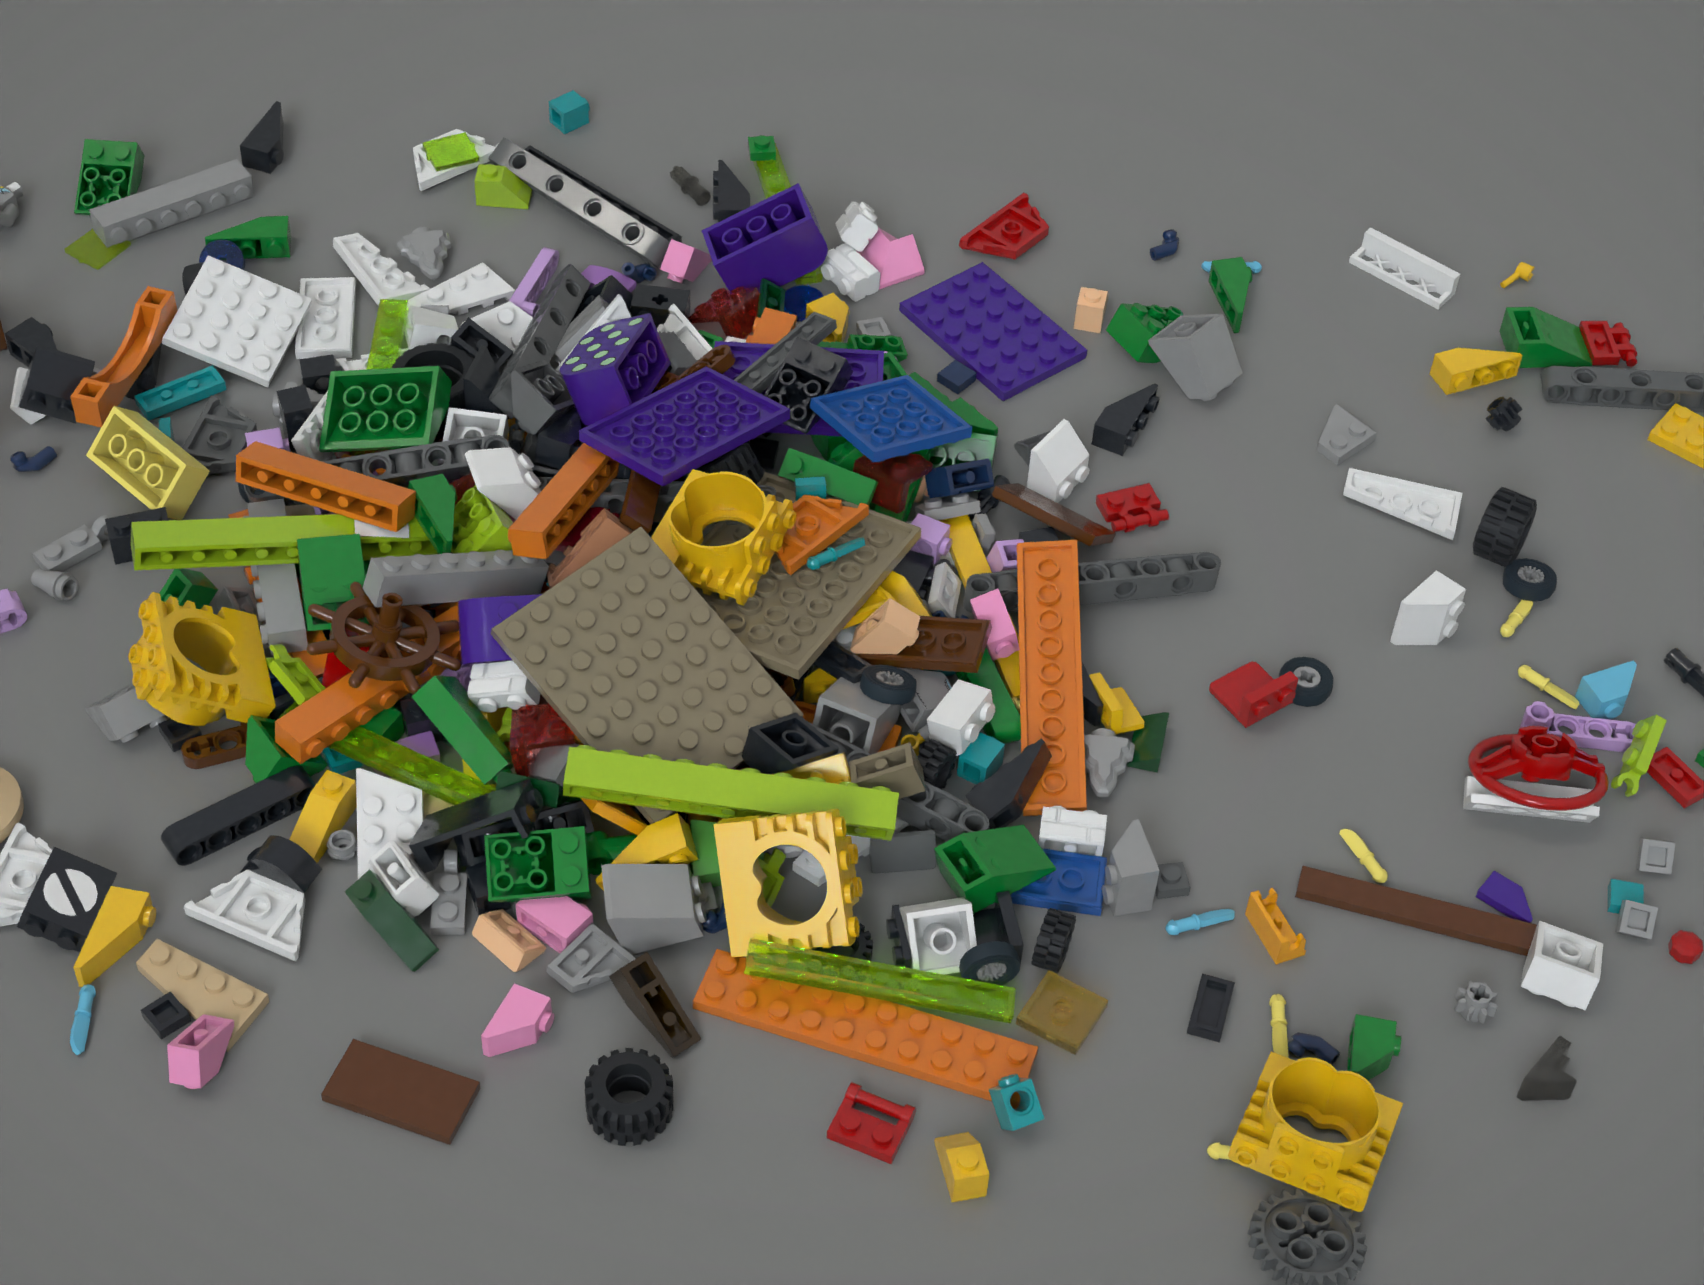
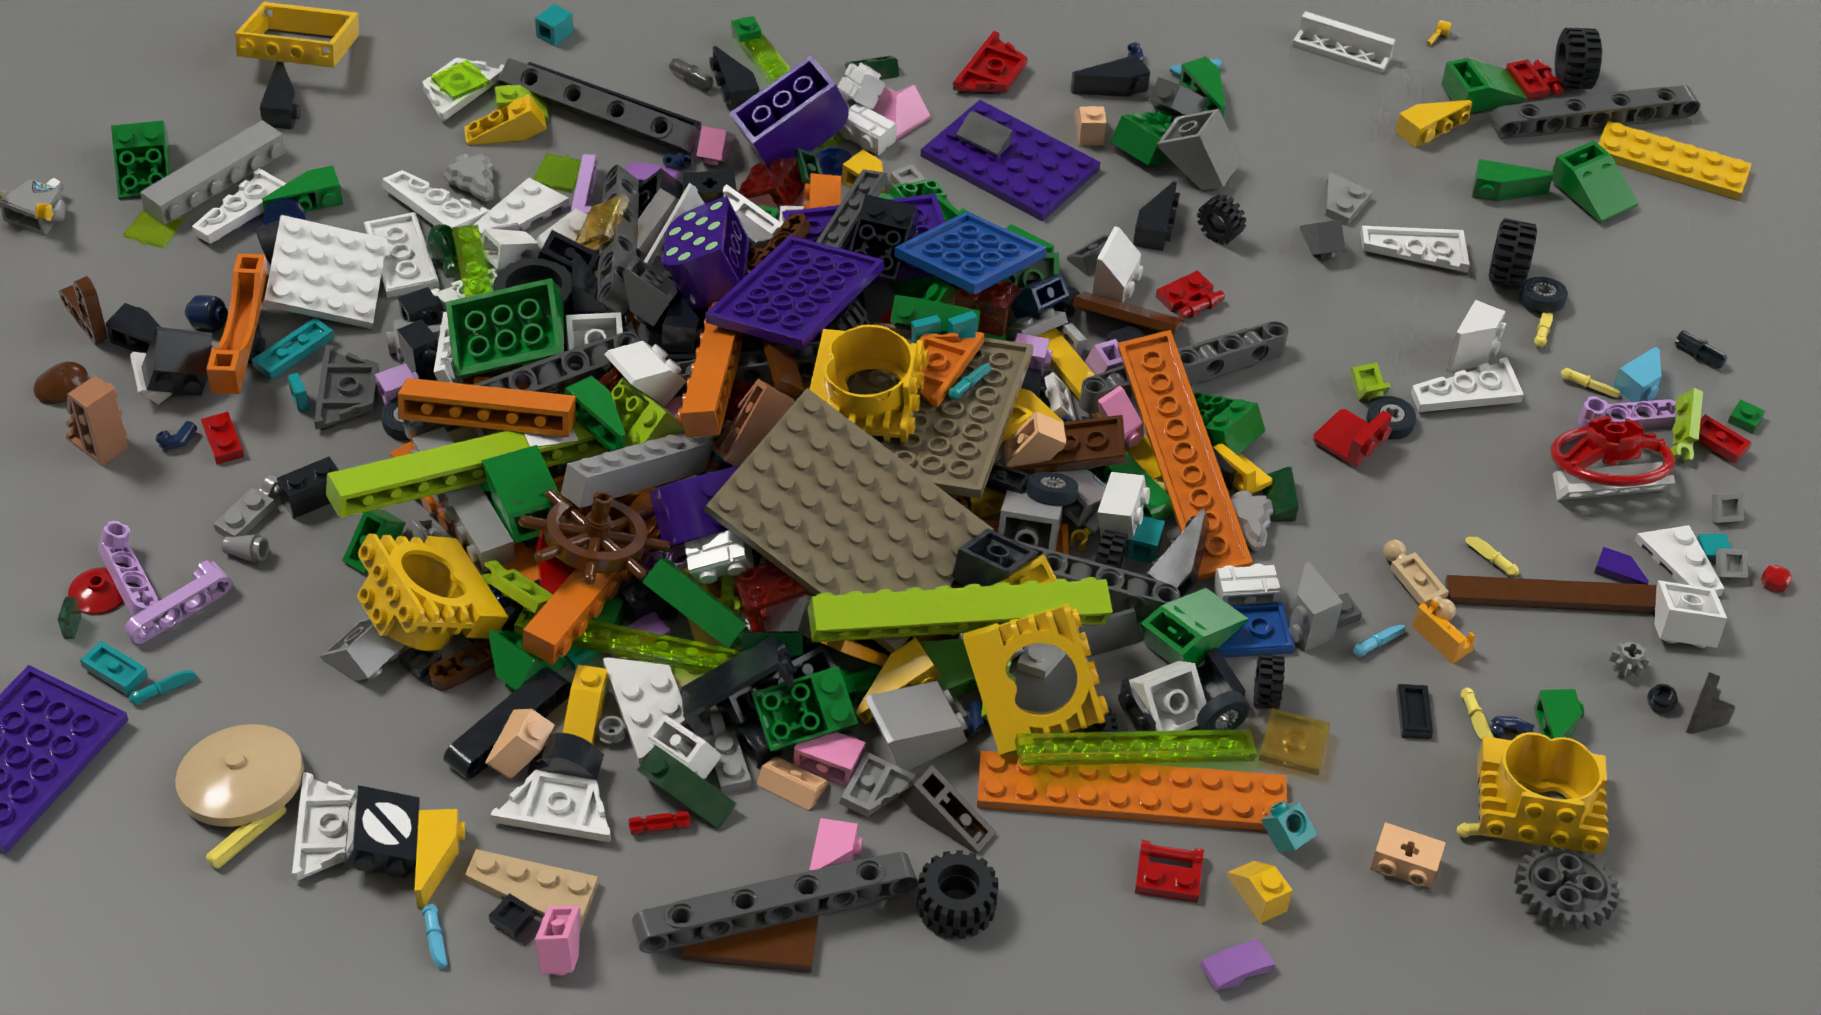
camera: 15 degrees left, 0 degrees up
(76, 470) = (222, 438): none -> red plate
(106, 339) = (206, 312): none -> dark blue head
(147, 462) = (294, 418): light yellow brick -> none
(180, 243) = (237, 208): none -> white wing
(238, 837) = (519, 742): none -> light nougat slope
(261, 80) = (253, 42): none -> yellow window
(353, 952) = (659, 822): none -> red axle
(363, 317) = (442, 248): none -> dark green hair
(433, 1061) = (773, 902): none -> dark grey beam
(487, 204) = (510, 123): none -> yellow slope
(513, 262) = (558, 172): none -> clear neon green piece
(527, 319) = (602, 221): none -> clear yellow plate
(850, 492) = (964, 325): none -> teal tile
(889, 211) = (884, 65): none -> dark green slope
(891, 768) = (1085, 561): dark tan slope -> none
(903, 1240) = (1236, 963): none -> medium lavender slope
(956, 377) = (994, 206): dark blue tile -> none
(970, 298) = (985, 134): none -> dark grey slope
(1116, 650) = (1230, 421): none -> green slope
(1134, 264) = (1113, 78): none -> black slope
(1139, 1165) = (1407, 855): none -> light nougat brick
(1192, 296) = (1176, 98): none -> dark grey slope
(1192, 432) = (1230, 214): none -> black tyre
(1268, 864) = (1418, 579): none -> tan plate
(1293, 637) = (1368, 382): none -> lime bracket
(1302, 474) = (1324, 238): none -> dark grey slope
(1416, 668) = (1480, 387): none -> white wing
(1500, 1053) = (1662, 698): none -> black plate
(1504, 413) = (1470, 153): black gear -> none
(1534, 449) = (1507, 181): none -> green slope
(1584, 900) = (1682, 556): none -> white wing
(1632, 466) = (1593, 181): none -> green slope
(1661, 328) = (1578, 58): none -> black tyre

